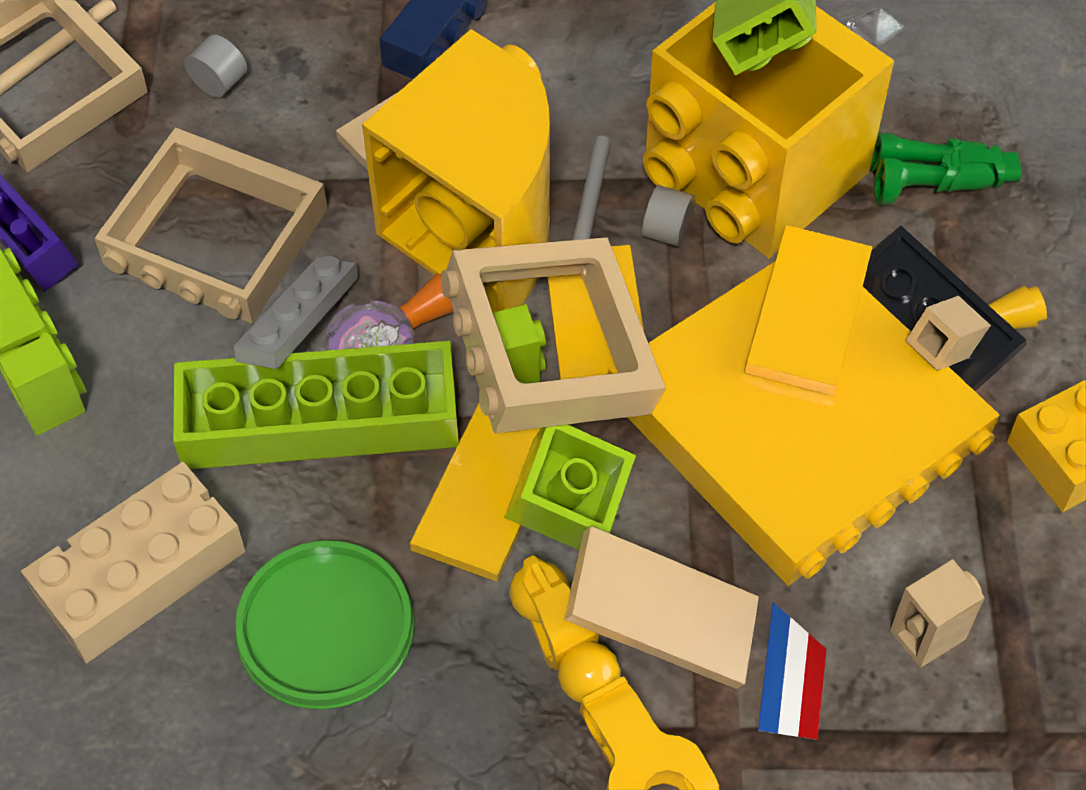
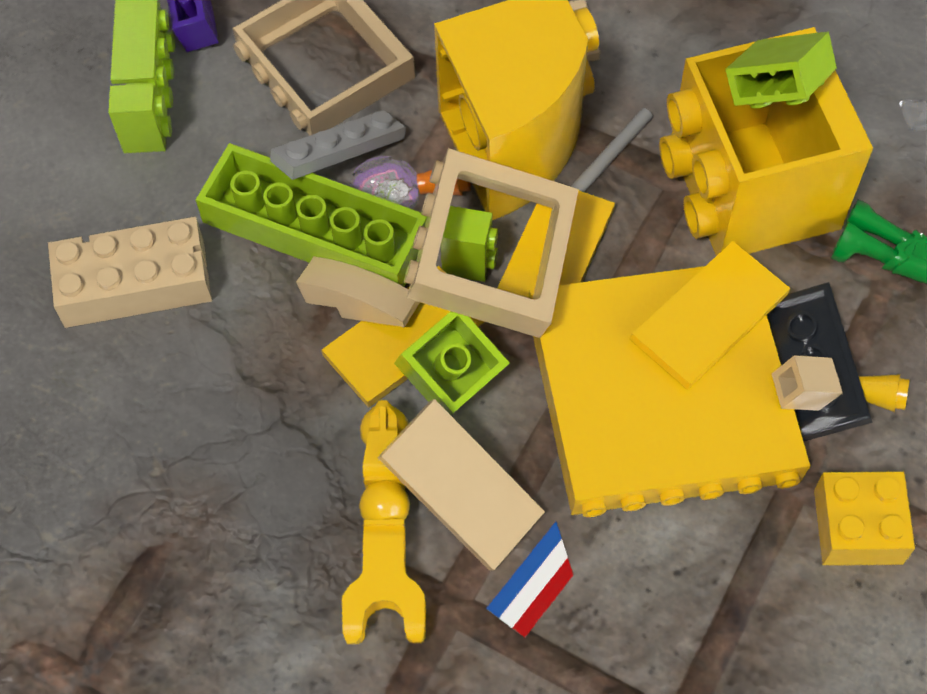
camera: 30 degrees right, 5 degrees up
(324, 625) = (231, 378): bright green brick -> none
(415, 462) = (356, 292): none -> tan slope
(668, 215) = (655, 193): light grey piece -> none
(937, 612) = (663, 590): tan brick -> none

